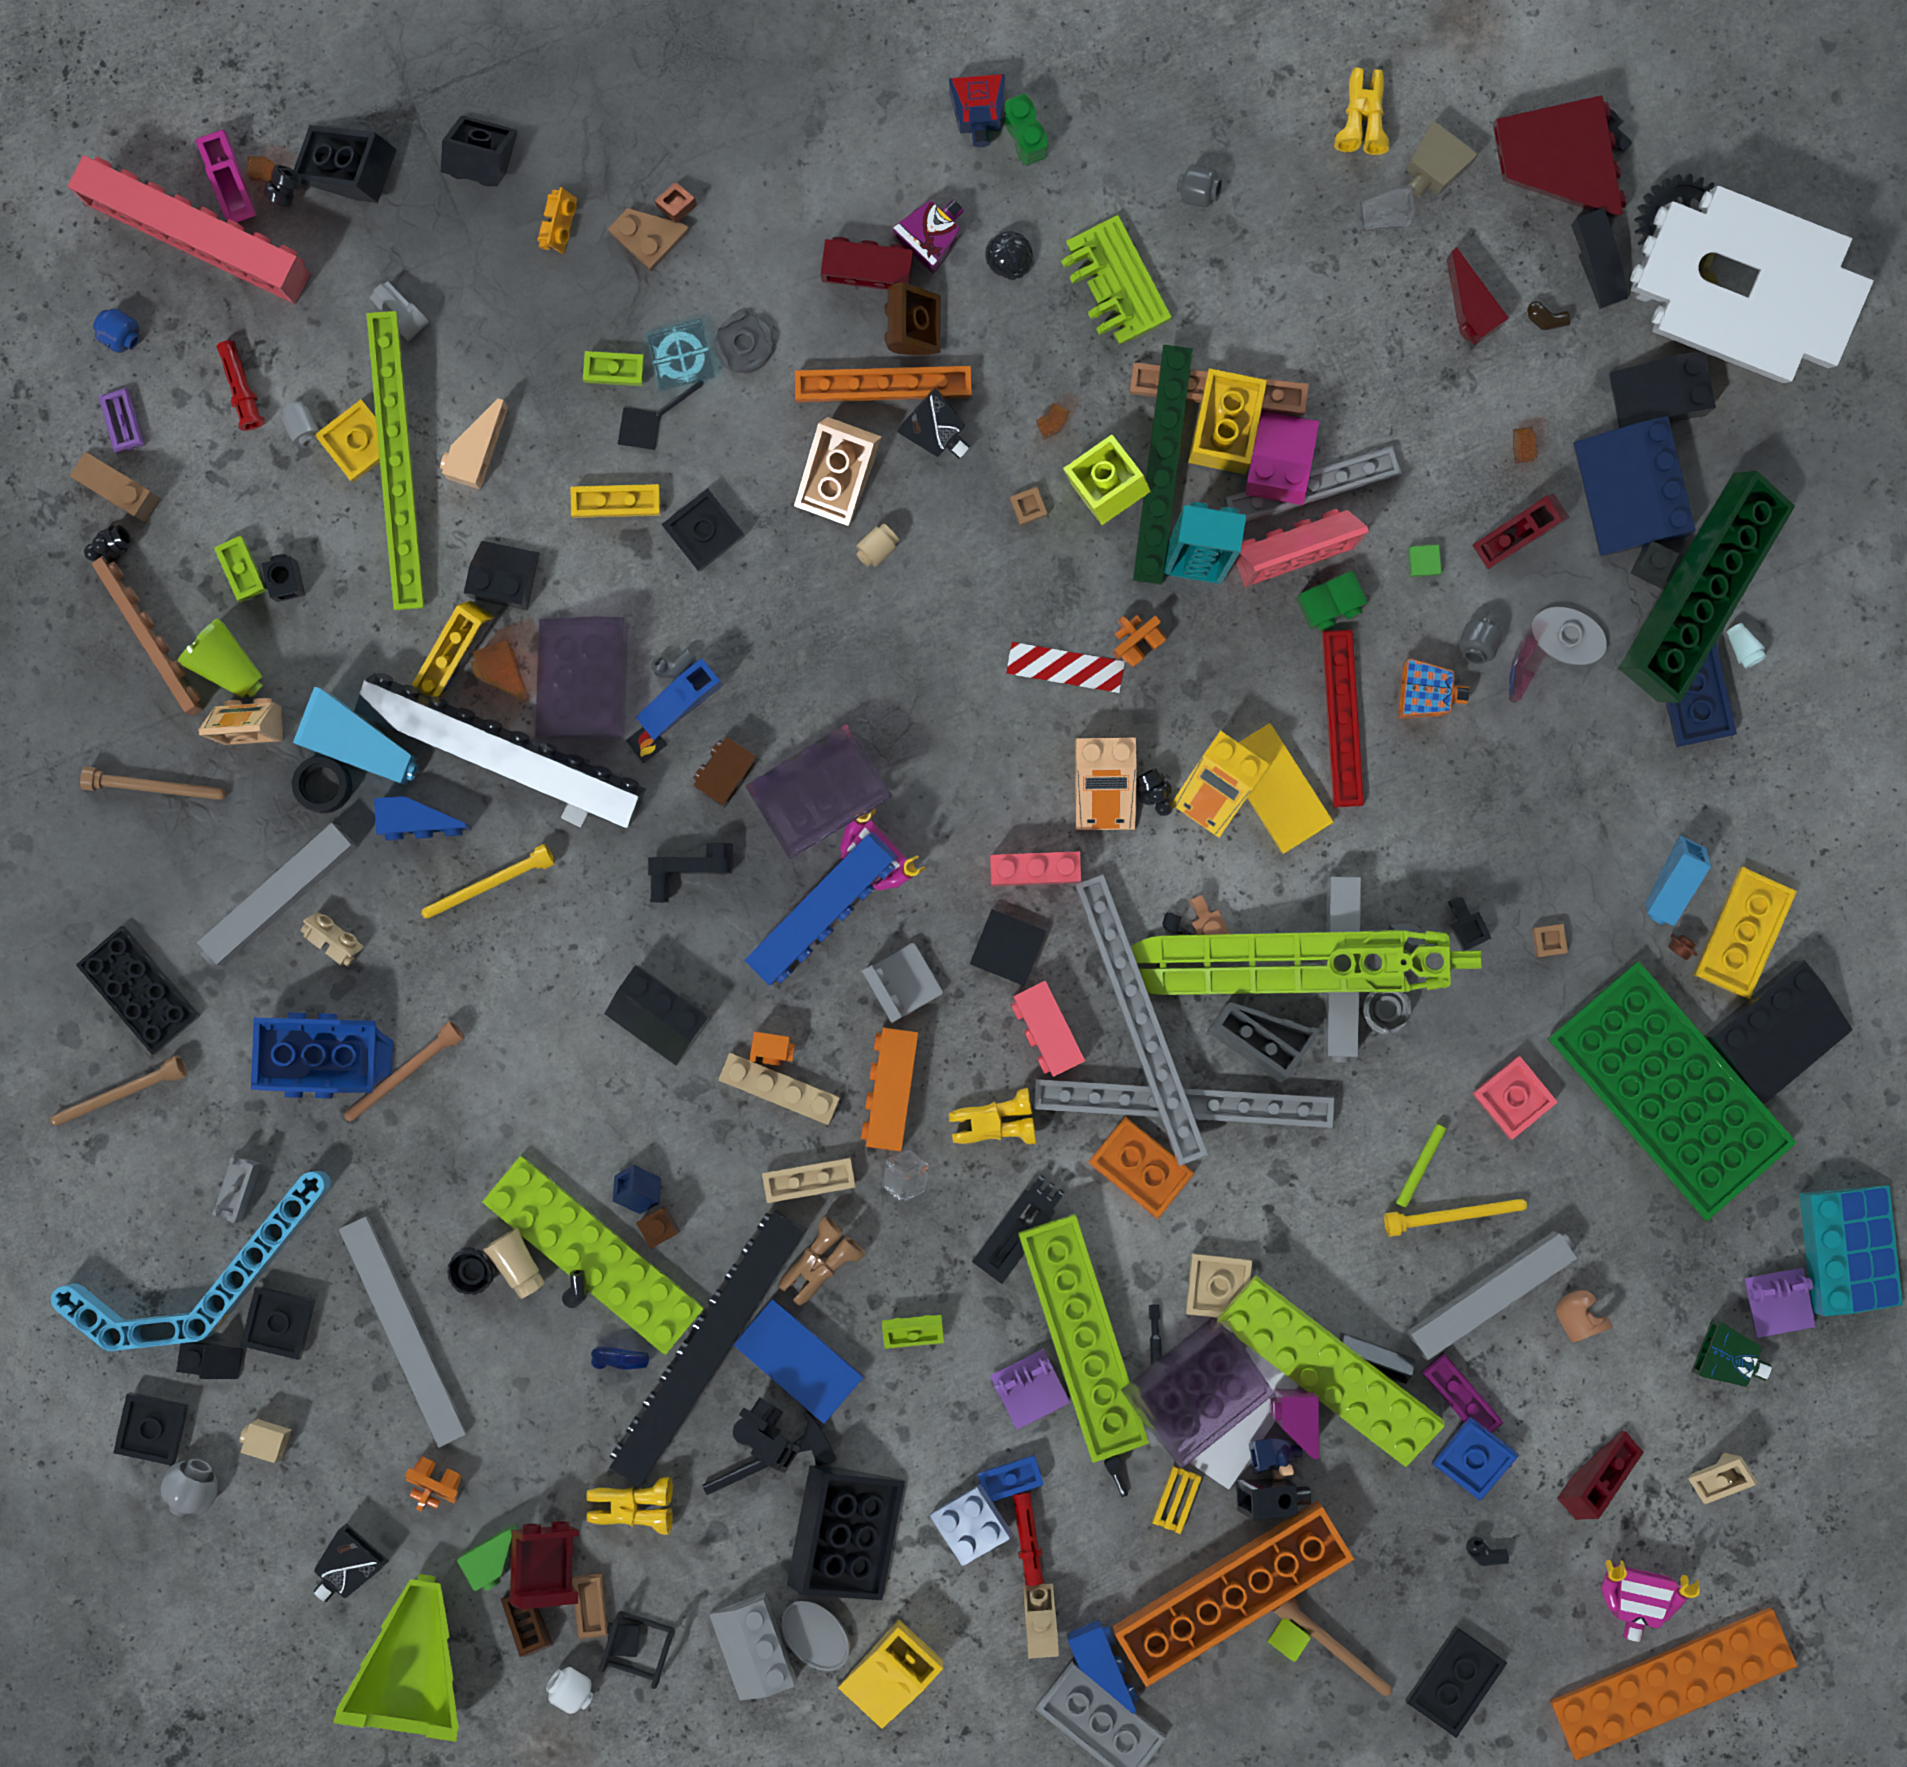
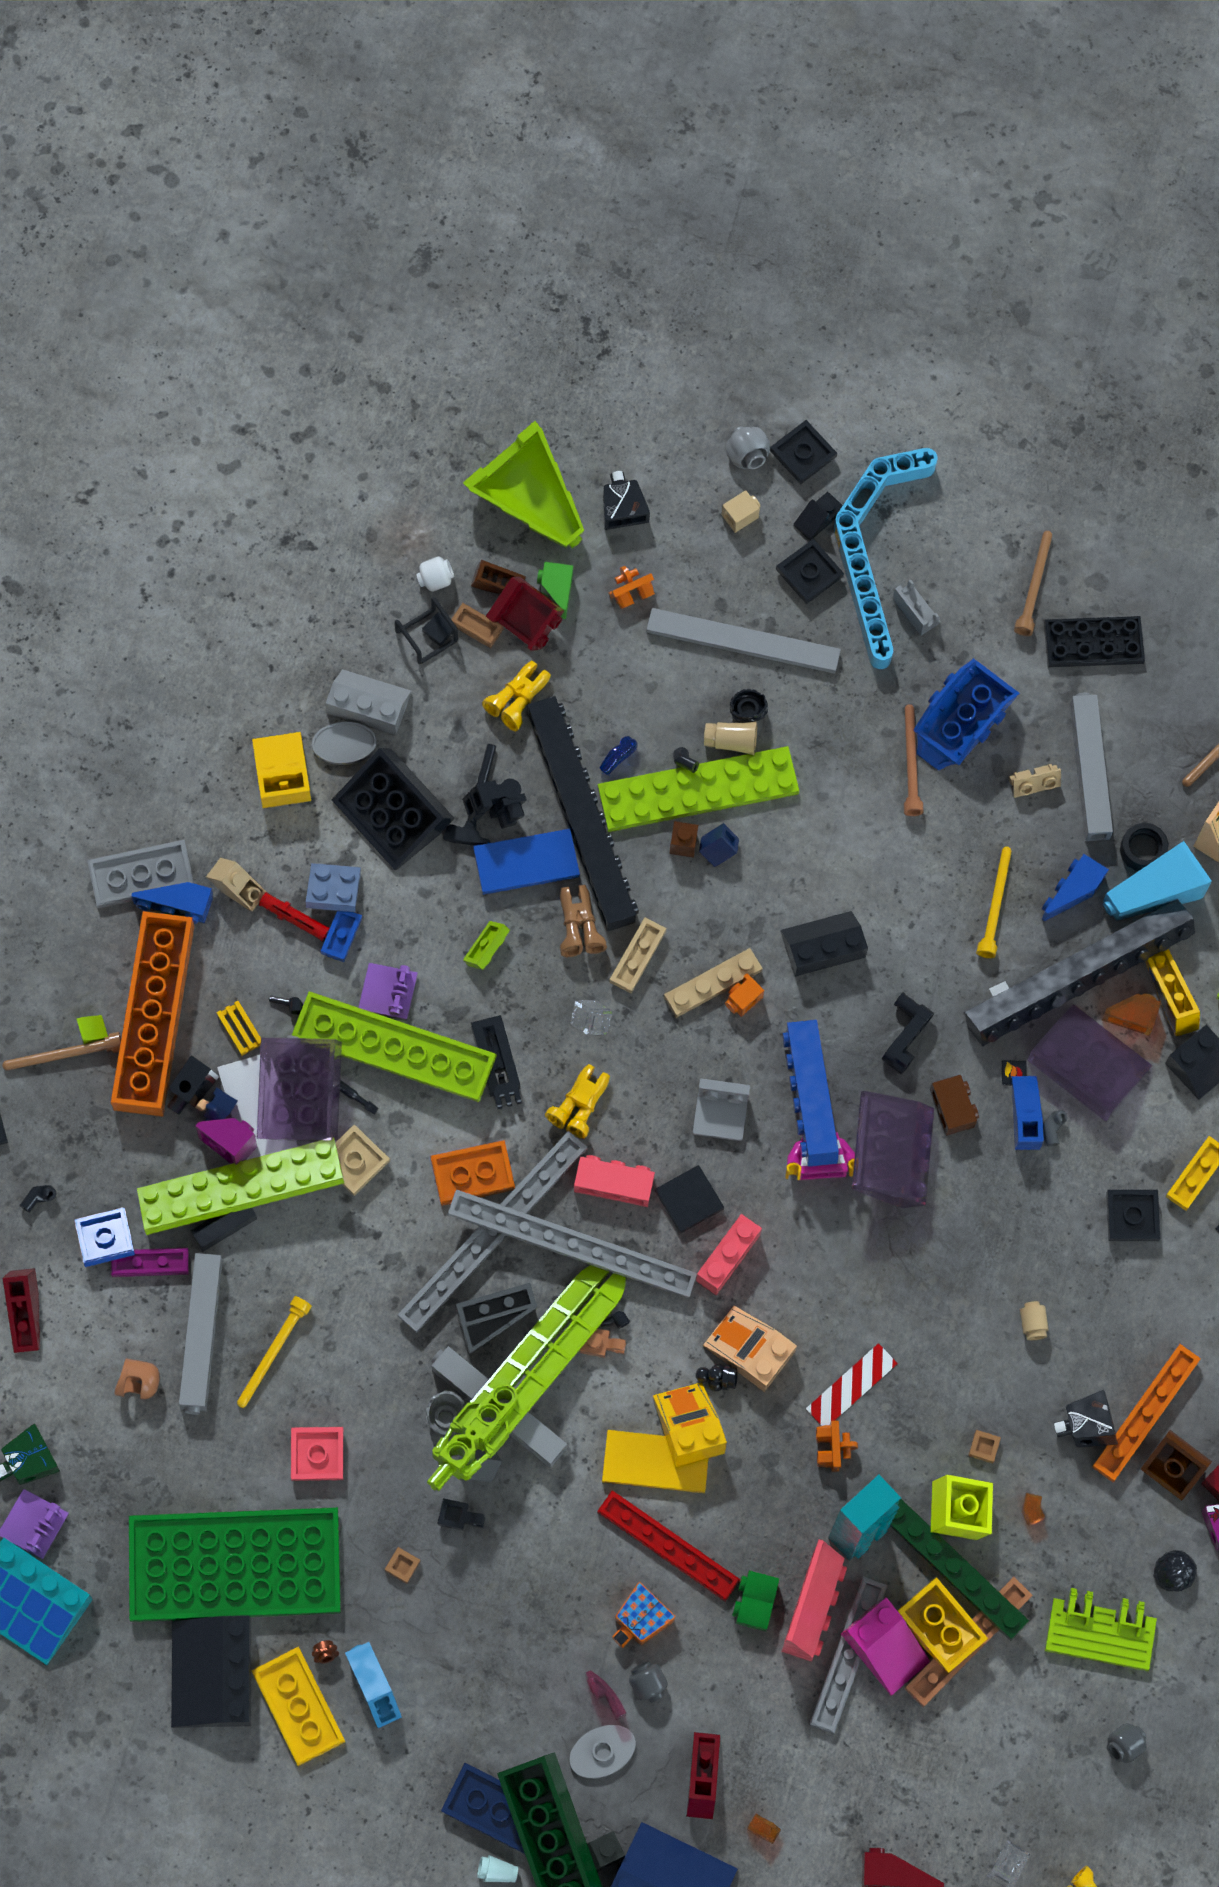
camera: 125 degrees right, 15 degrees down
(837, 470) = (1108, 1335): light nougat slope -> none
(891, 1089) = (655, 1051): orange brick -> none
(1421, 1165) = (323, 1356): lime bar -> none
(1424, 561) = (735, 1691): bright green tile -> none

